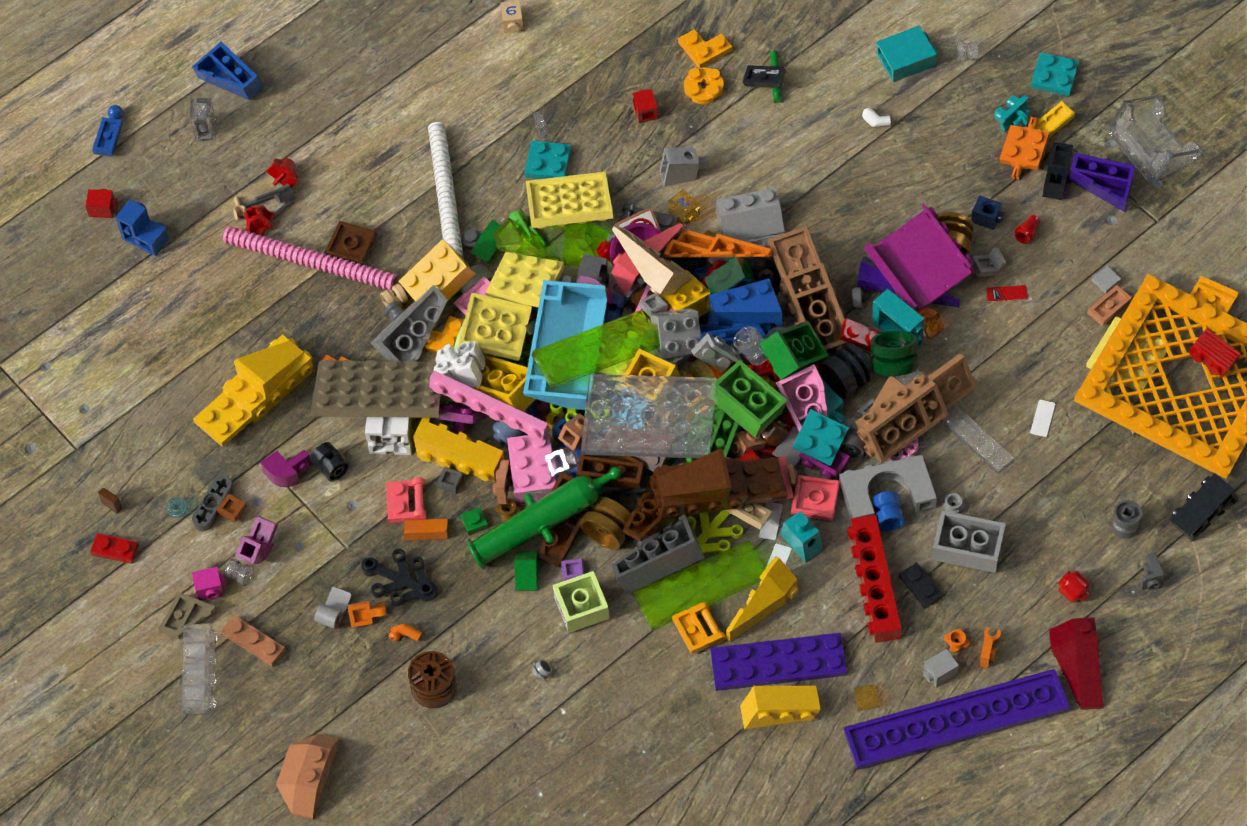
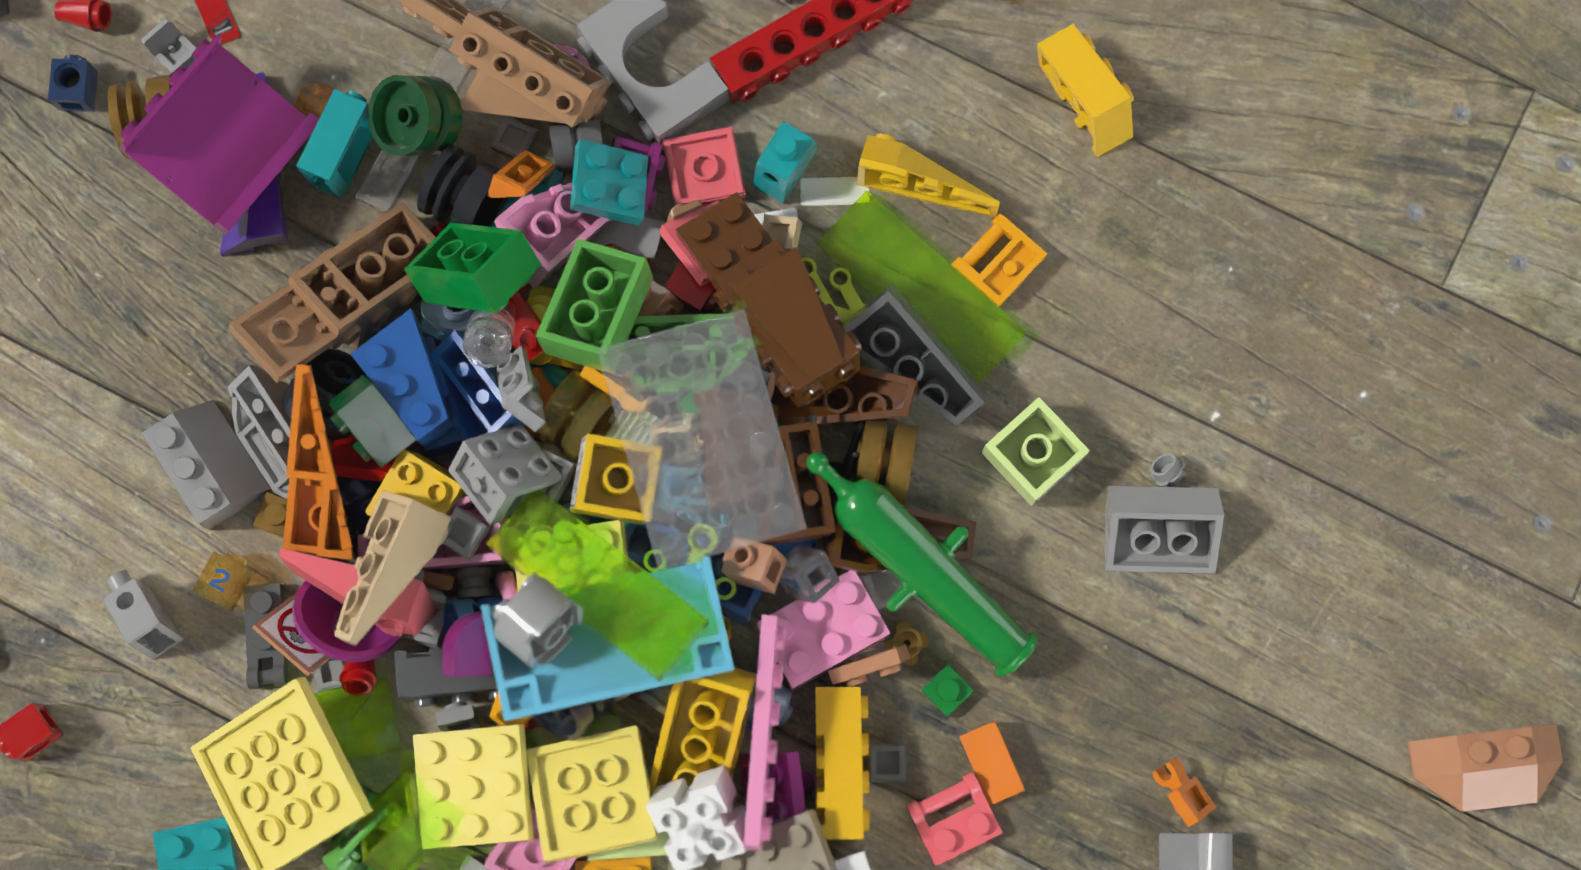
camera: 115 degrees left, 20 degrees up
(400, 580) = (1101, 761): black plant -> none
(404, 630) = (1187, 715): orange arm -> none
(432, 690) = (1246, 617): reddish brown wheel -> none
(511, 653) = (1162, 529): none -> light grey slope
(526, 570) = (1004, 566): green slope -> none
(572, 568) = (973, 495): medium lavender tile -> none
(586, 308) = (536, 621): none -> light grey brick
(778, 661) = (1005, 126): dark purple plate -> none
(840, 395) = (520, 176): none -> orange slope
(857, 297) = (308, 232): light grey tile -> none
(857, 334) = (392, 188): red plate -> none
(888, 511) = (689, 47): blue wheel -> none

